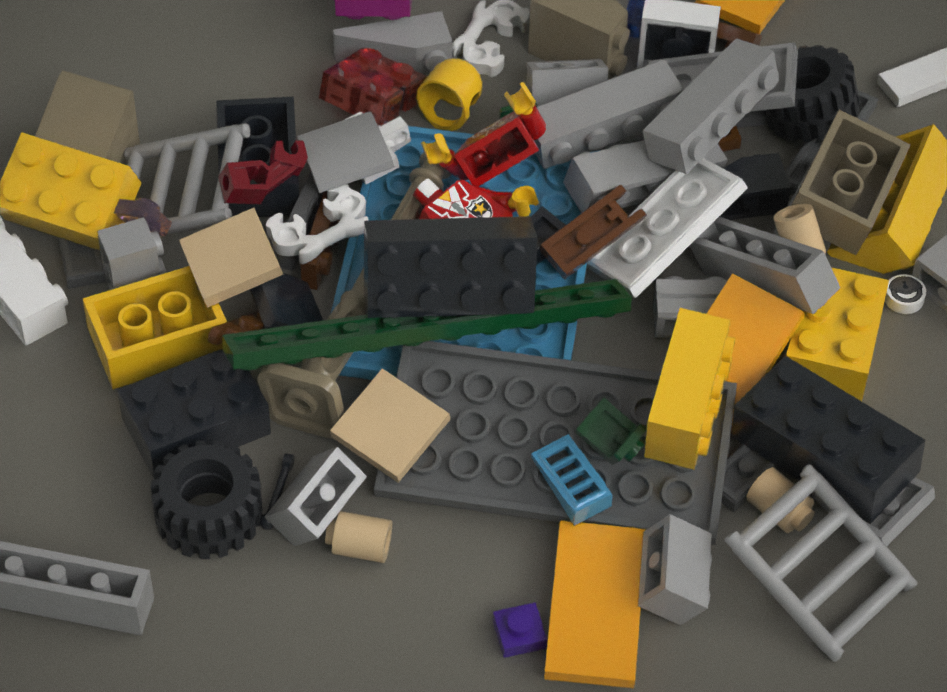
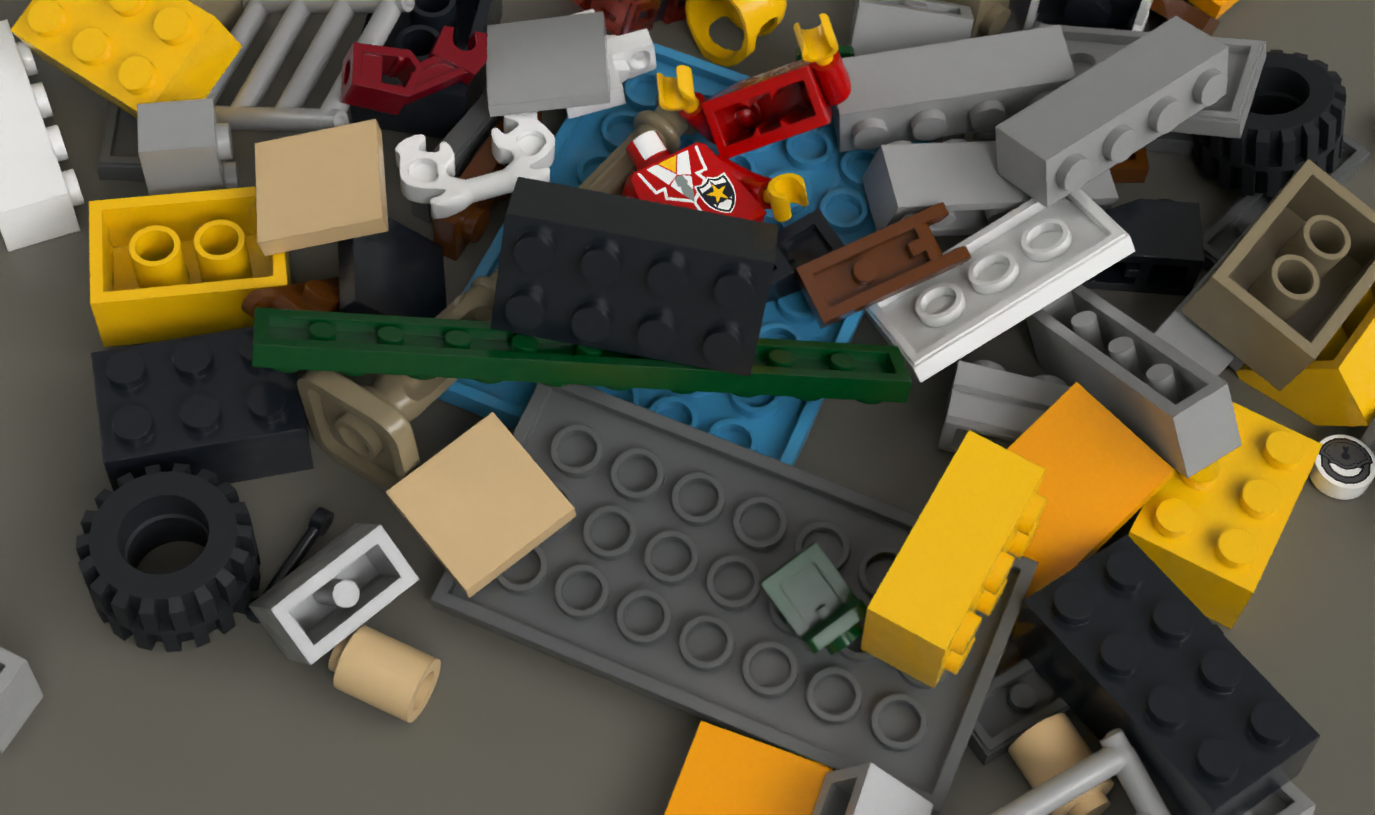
camera: 10 degrees right, 5 degrees up
(131, 210) = (227, 93): plate -> none
(588, 505) = (748, 710): dark azure slope -> none
(799, 225) = (1202, 331): tan brick -> none

